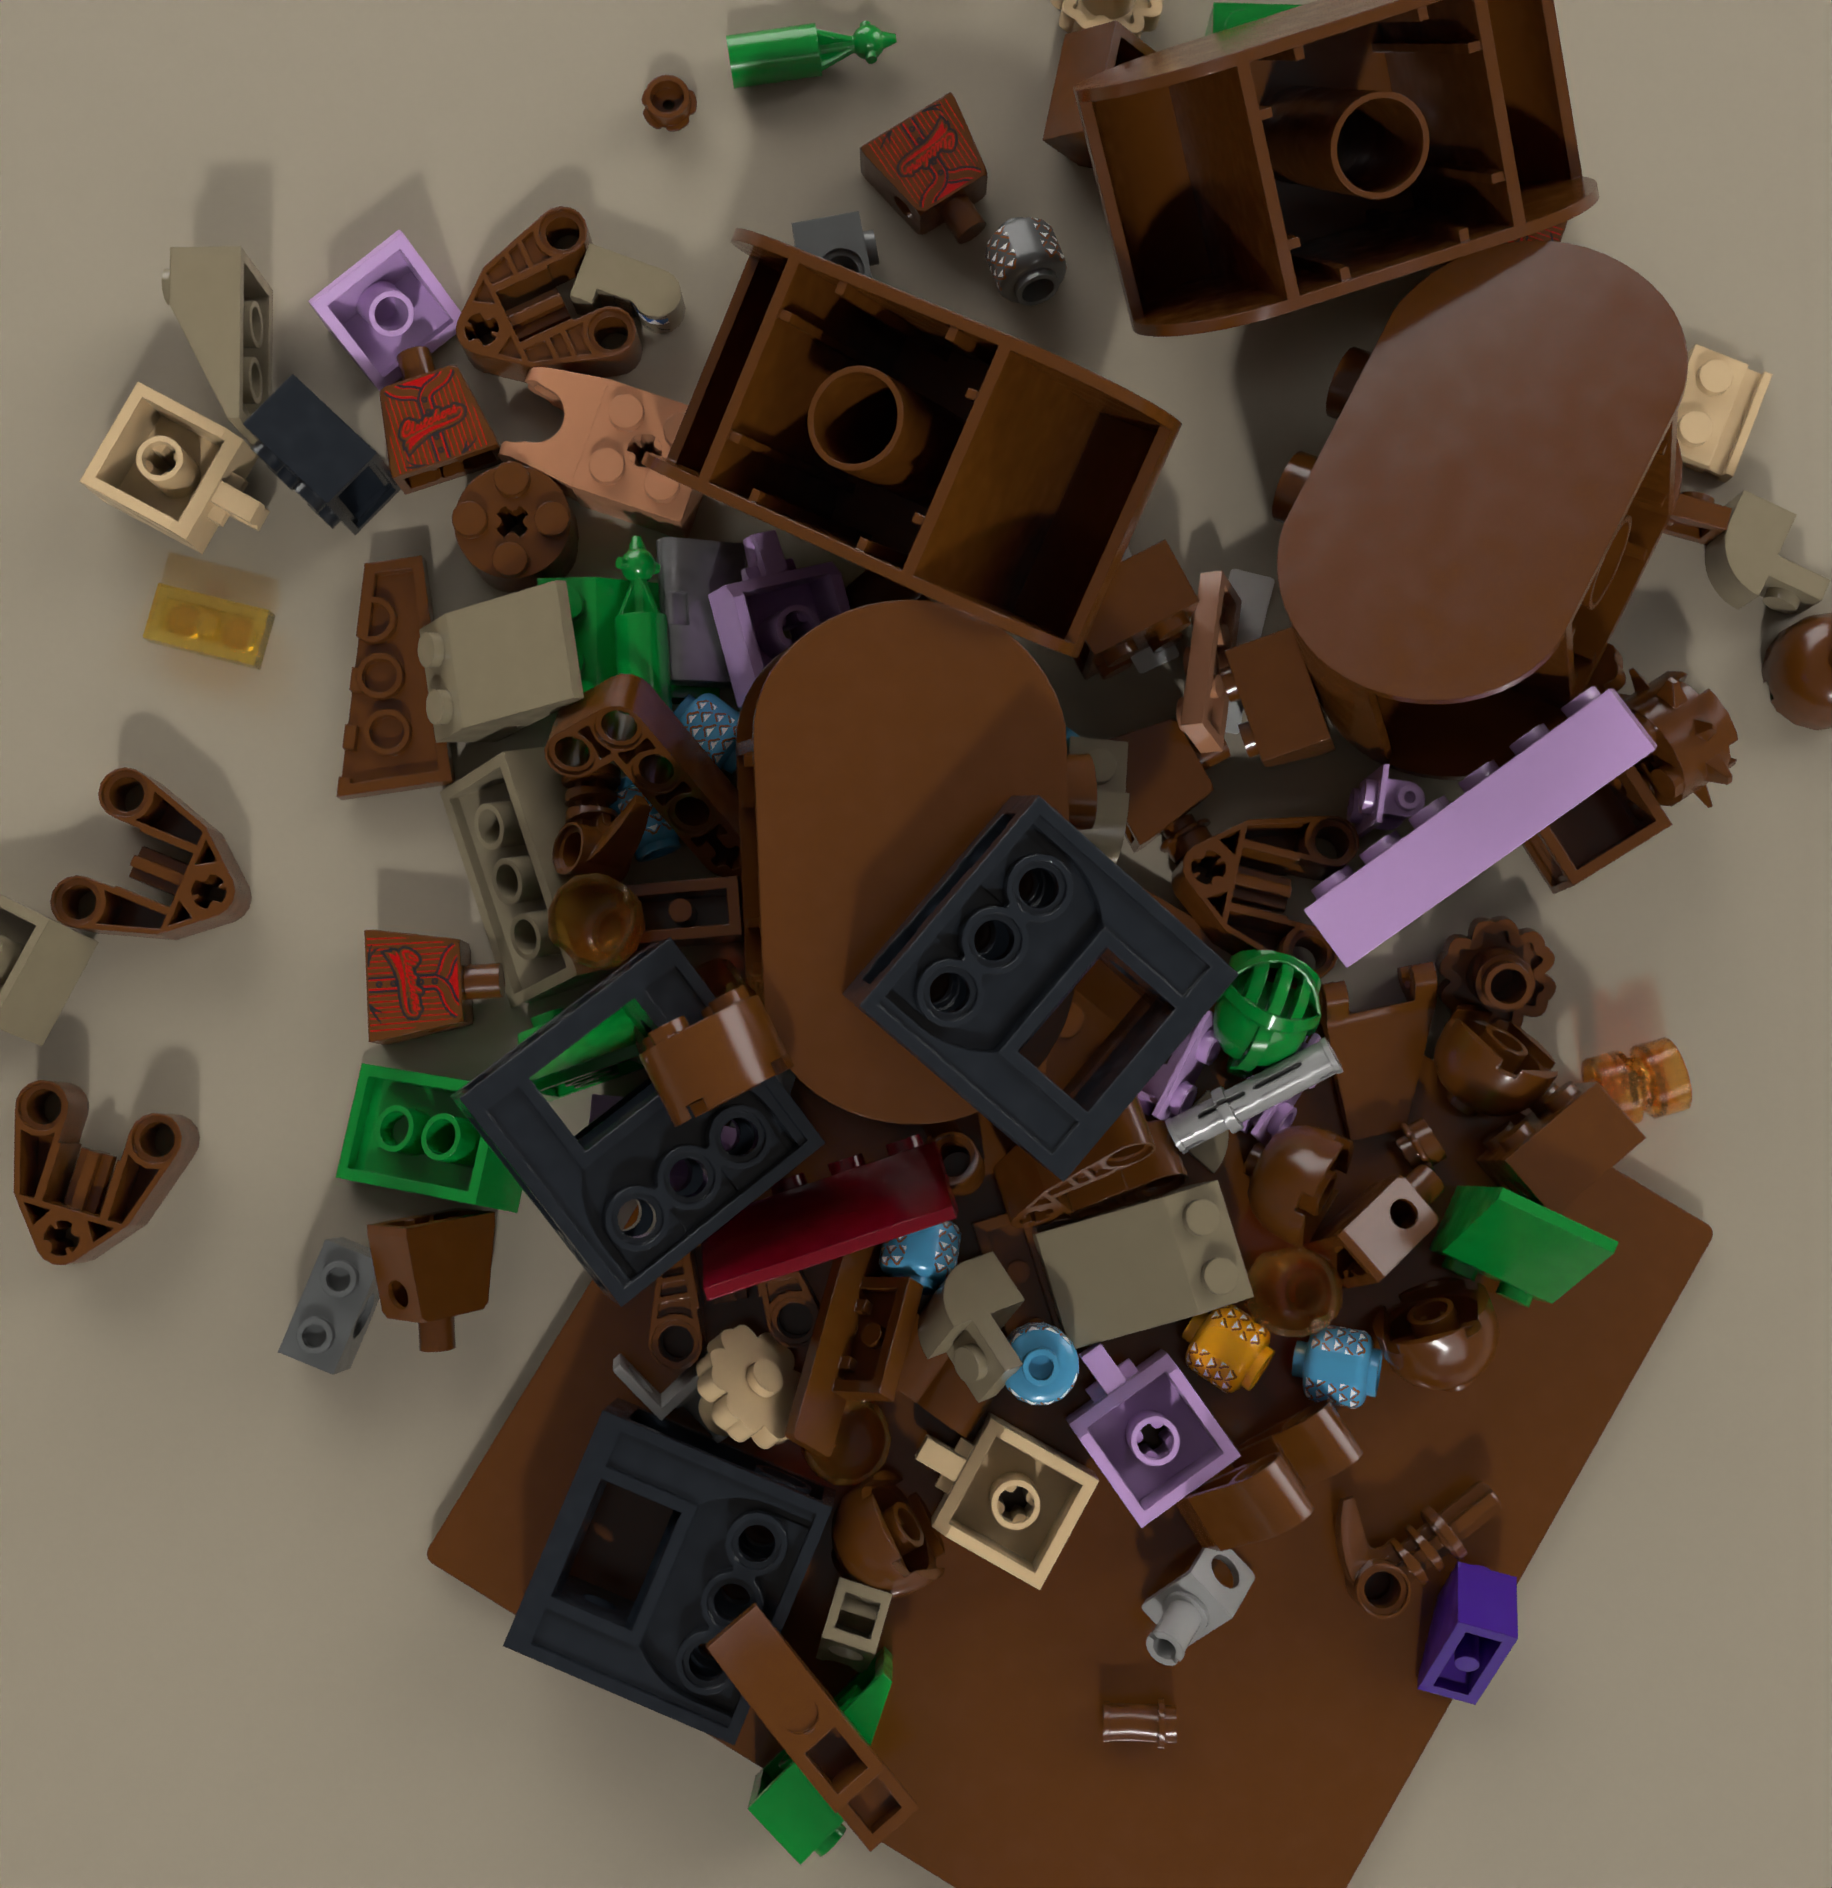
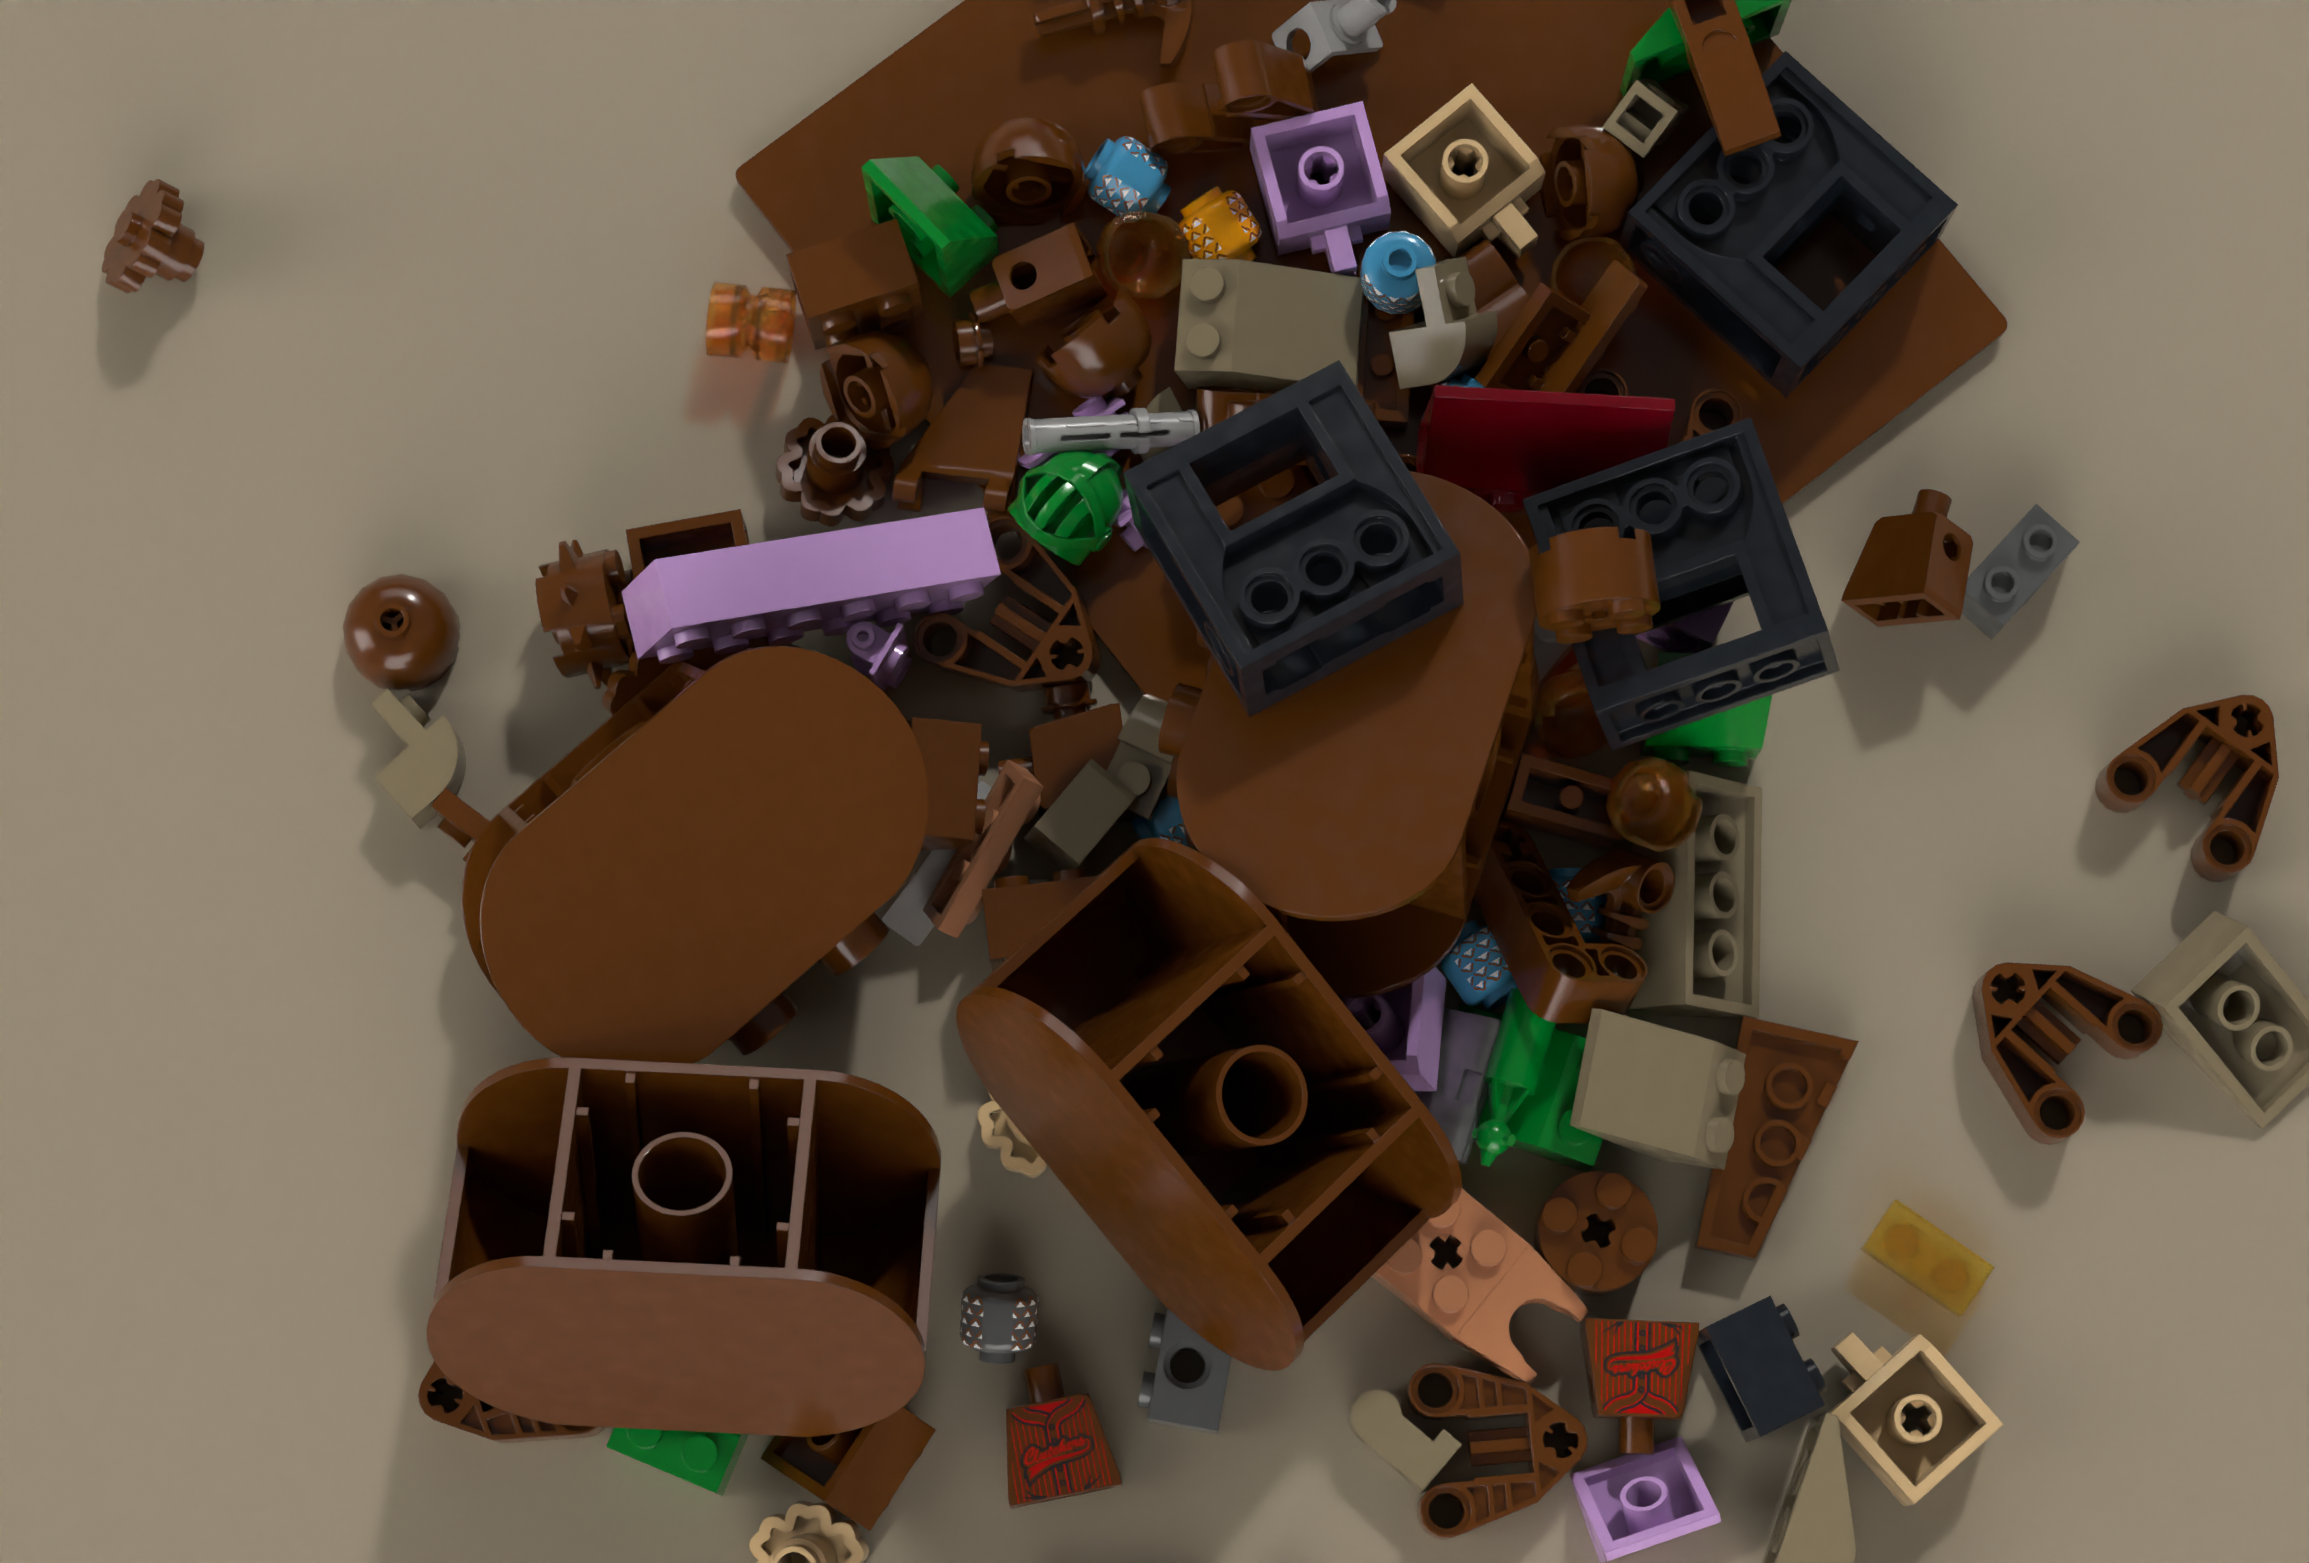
camera: 155 degrees left, 5 degrees down
(418, 1141) = (1886, 699): green slope -> none
(423, 985) = (1835, 834): reddish brown torso -> none
(680, 1393) = (1717, 371): light grey bracket -> none
(747, 1386) = (1664, 346): tan plant -> none
(1134, 712) = (1080, 817): none -> dark tan slope
(1717, 411) = (395, 919): tan plate -> none

